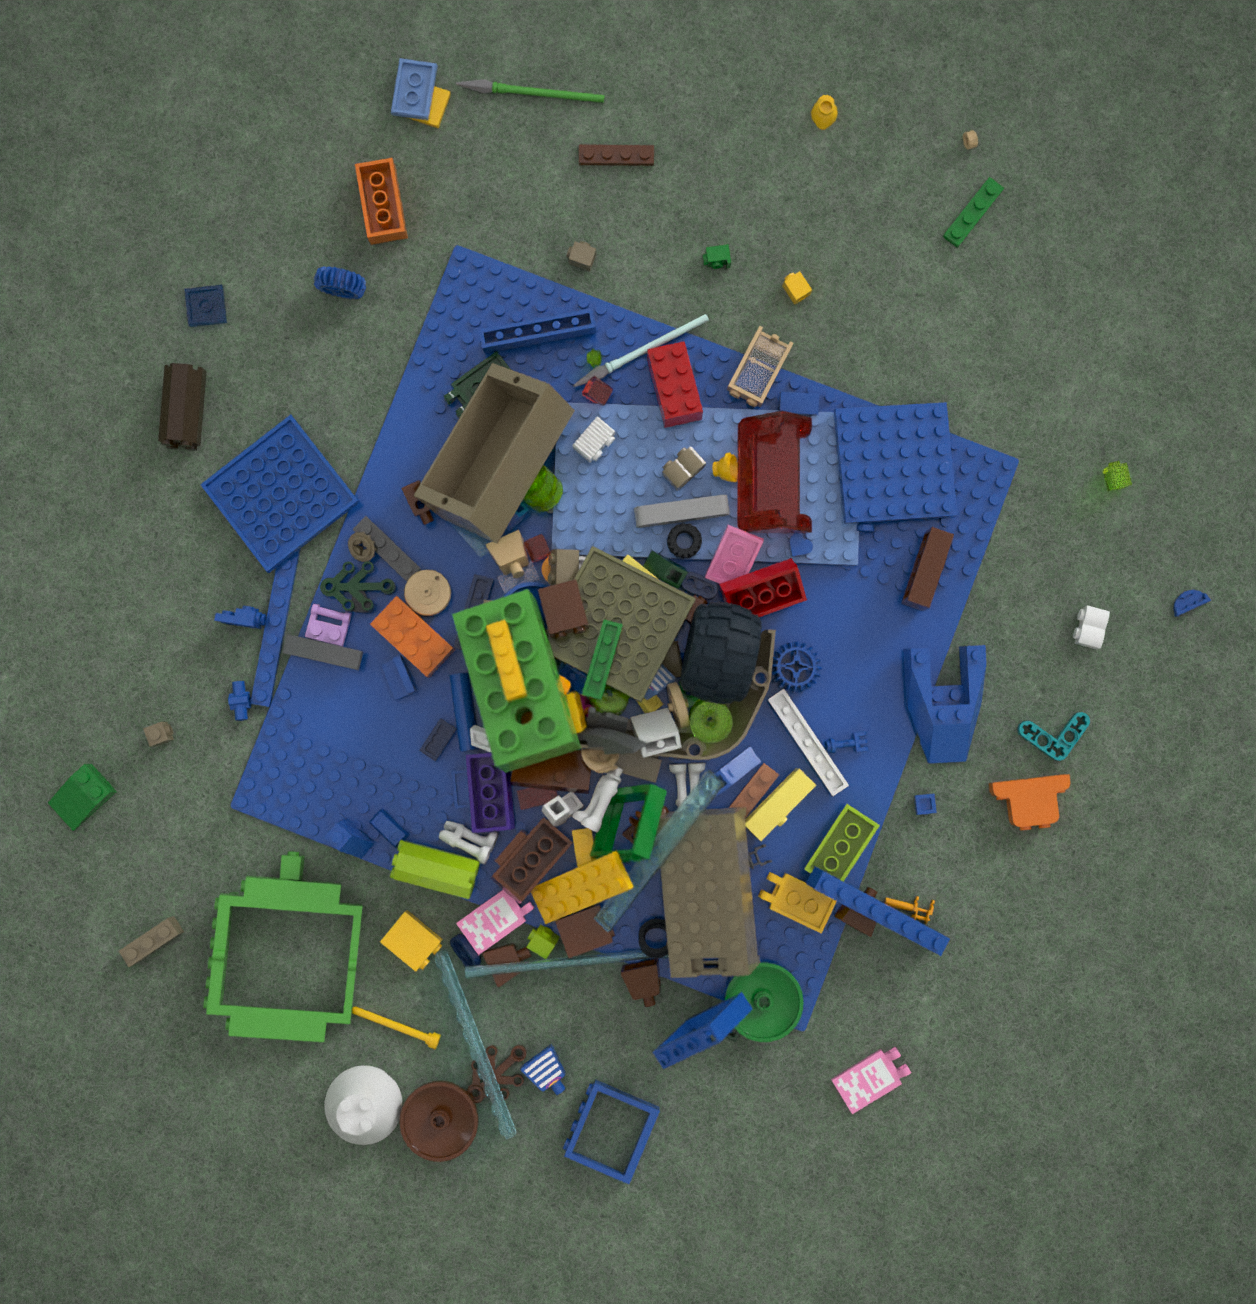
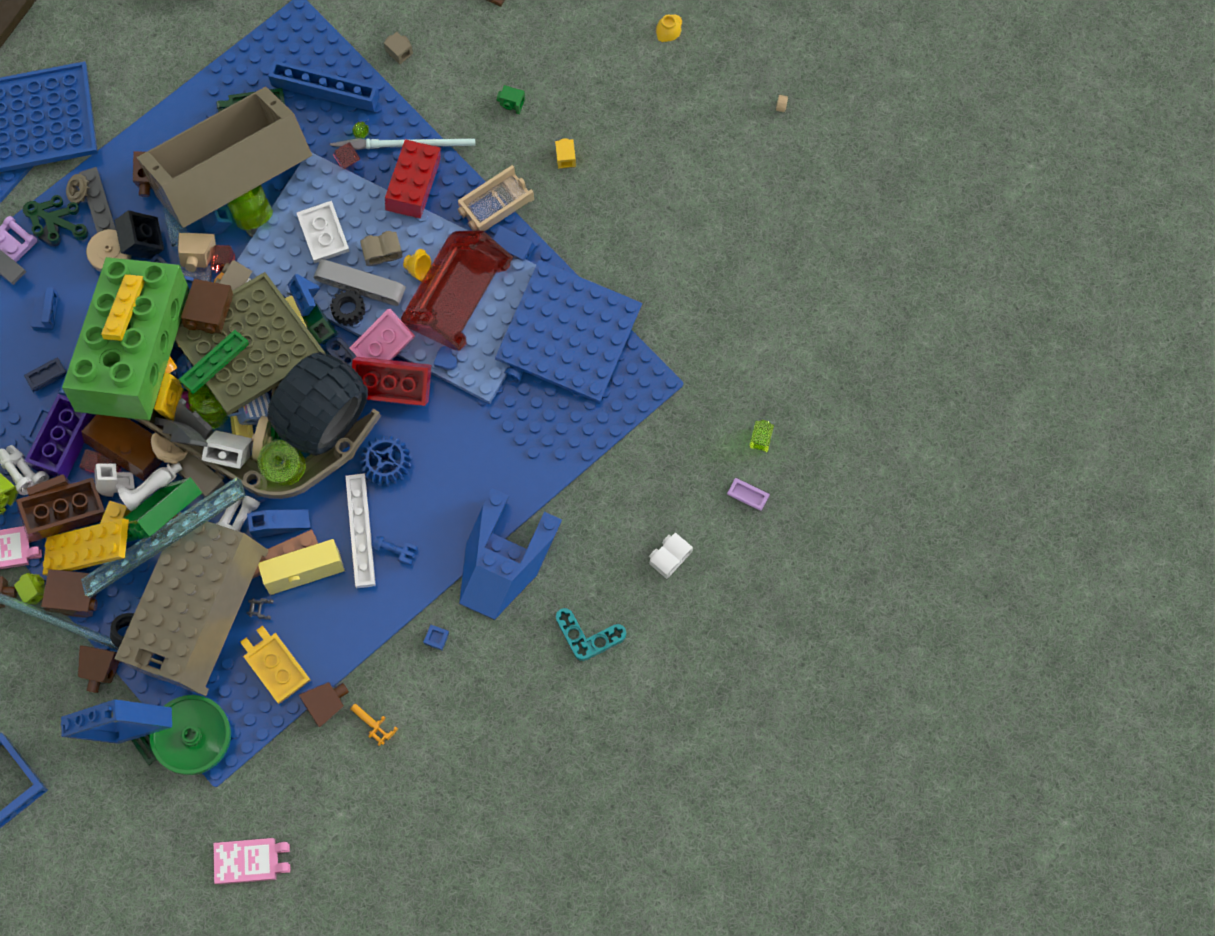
camera: 30 degrees right, 15 degrees down
(412, 636) = (72, 277): orange brick -> none
(450, 565) = (139, 234): none -> black brick
(594, 440) = (318, 190): white brick -> none
(620, 478) = (323, 231): none -> white plate
(635, 547) = (303, 293): none -> blue slope
(843, 843) = (337, 633): lime brick -> none
(877, 911) = (335, 702): blue brick -> none
(927, 569) = (545, 430): reddish brown brick -> none
(973, 212) = (754, 163): green plate -> none
(1031, 799) = (534, 679): orange brick -> none
(1129, 536) = (748, 494): none -> lavender tile
(1189, 600) = (774, 577): blue tile -> none

